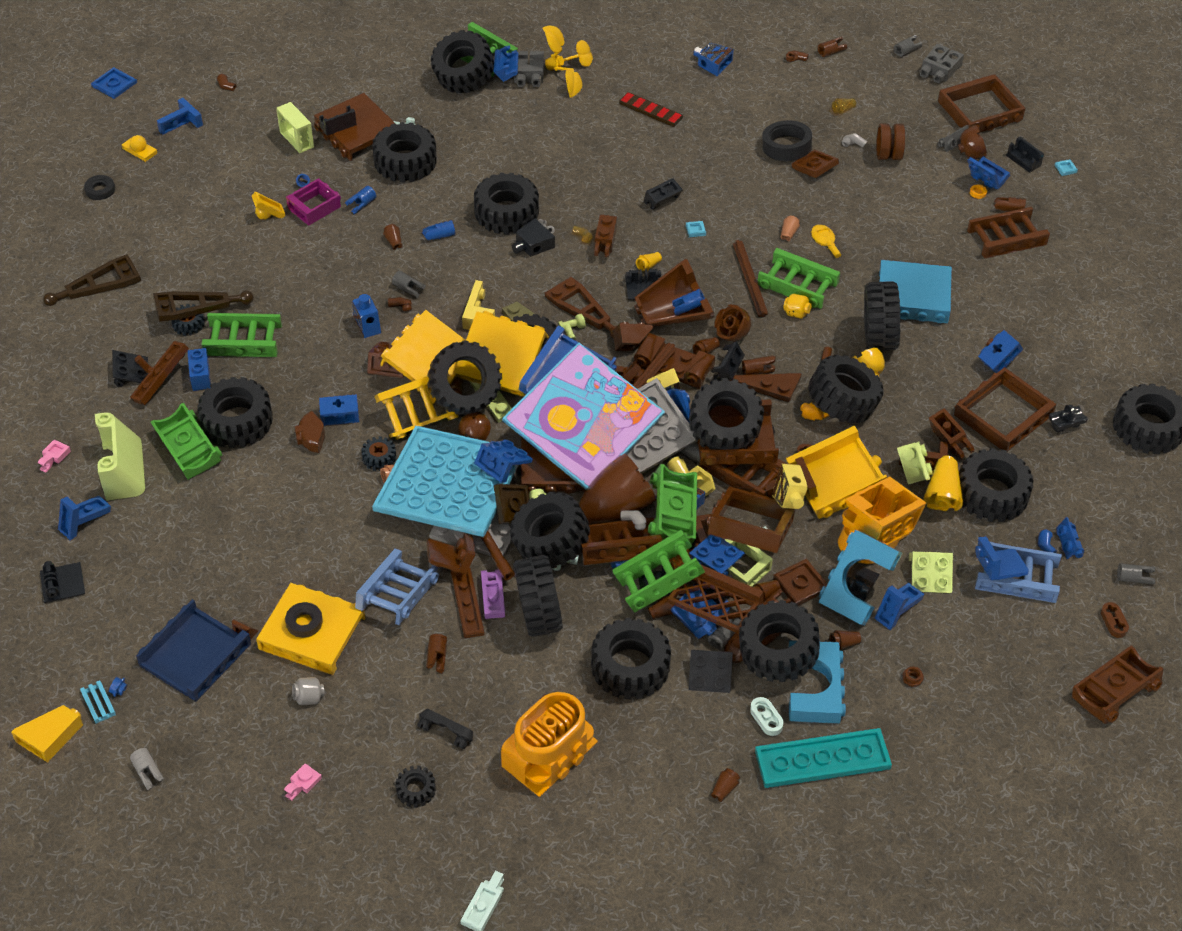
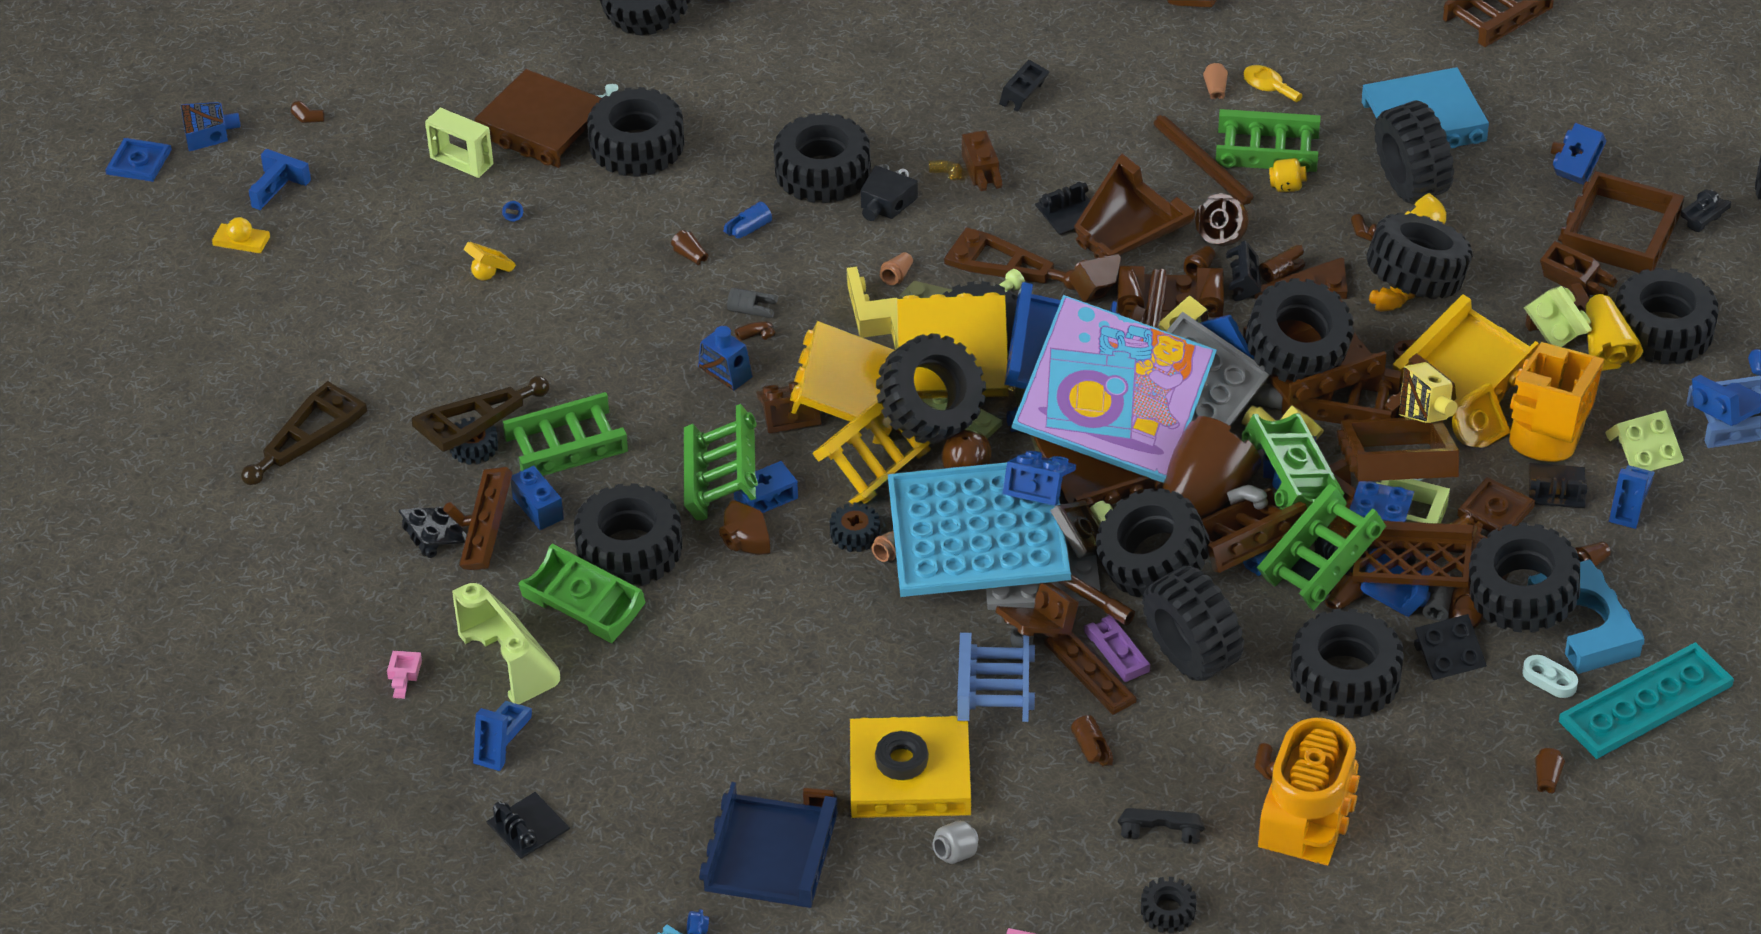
camera: 20 degrees left, 5 degrees down
(99, 194) = (221, 317): black tyre -> none
(162, 73) = (206, 124): none -> blue torso
(308, 378) = (698, 459): none -> bright green fence
(309, 216) = (538, 251): magenta window -> none
(339, 122) = (521, 117): black hinge -> none
(362, 198) = (612, 210): blue hinge -> none
(510, 290) = (896, 269): none -> nougat cone
(648, 261) = (1056, 177): yellow cone -> none
(688, 302) = (1148, 211): blue hinge -> none
(695, 229) = (1092, 118): medium azure tile -> none
(823, 515) = (1479, 418): none -> yellow tile
(837, 594) = (1565, 433): dark azure arch -> none
(913, 671) = (1696, 565): reddish brown plate -> none

